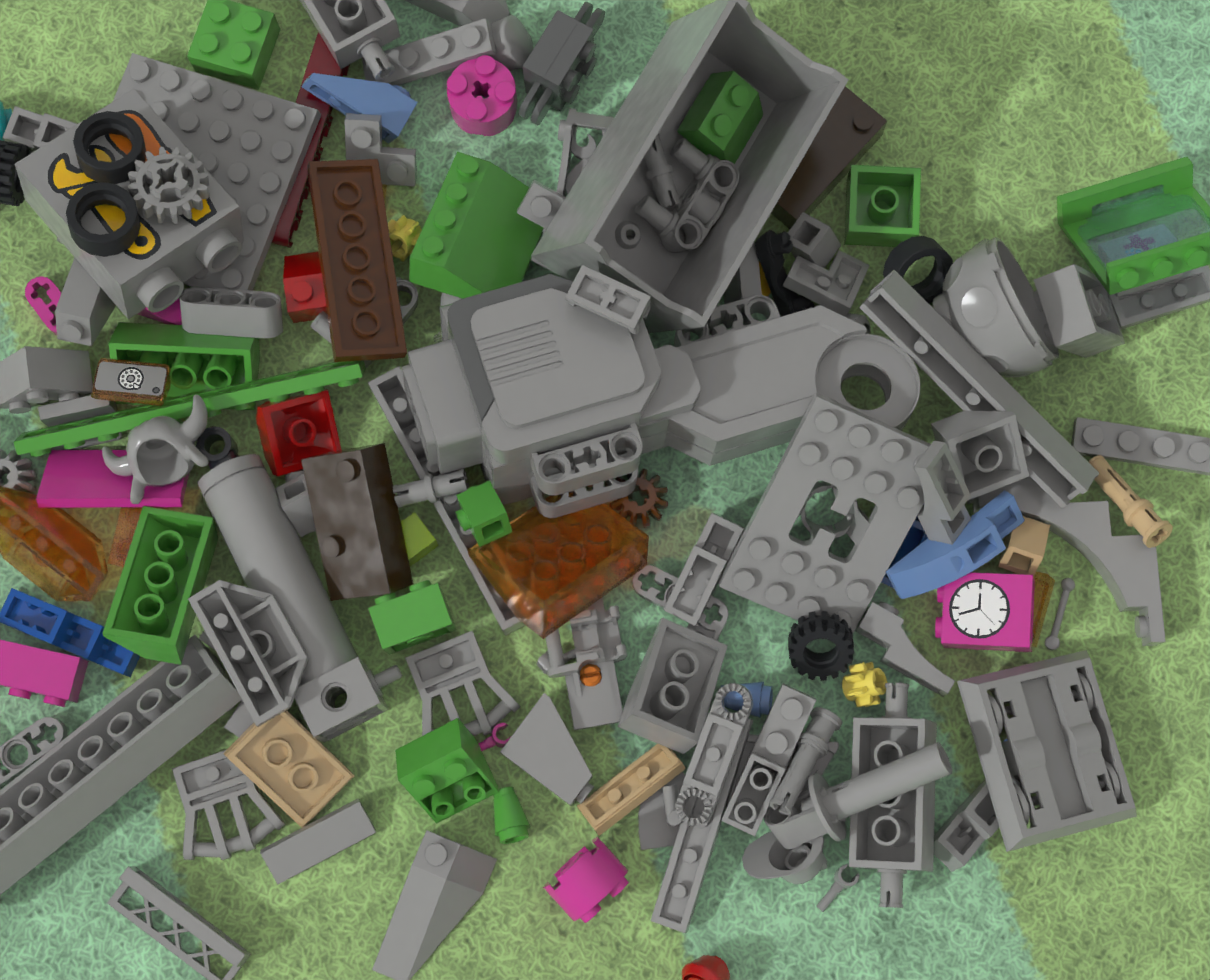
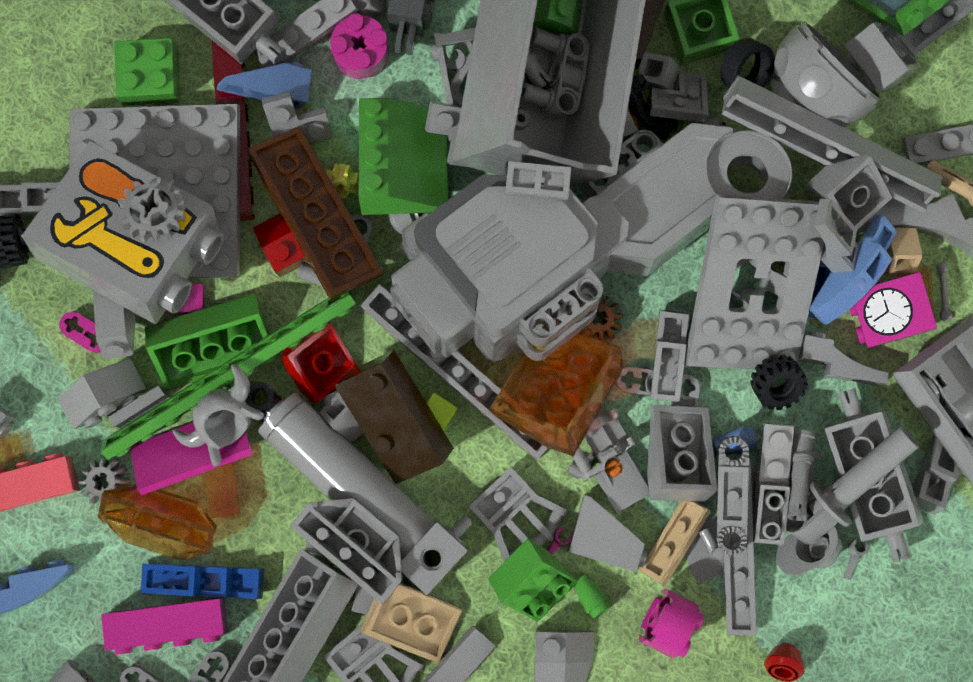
camera: 25 degrees left, 5 degrees up
(96, 195) = (110, 234): black tyre -> none
(104, 124) = (88, 175): black tyre -> none
(131, 381) = (174, 371): slope -> none
(161, 571) = (261, 520): bright green slope -> none
(231, 312) = (232, 288): light grey beam -> none
(411, 617) = (464, 474): bright green brick -> none
(430, 488) = (442, 371): light grey pin -> none
(483, 513) = (490, 376): bright green brick -> none
(864, 684) = (821, 399): light yellow gear -> none

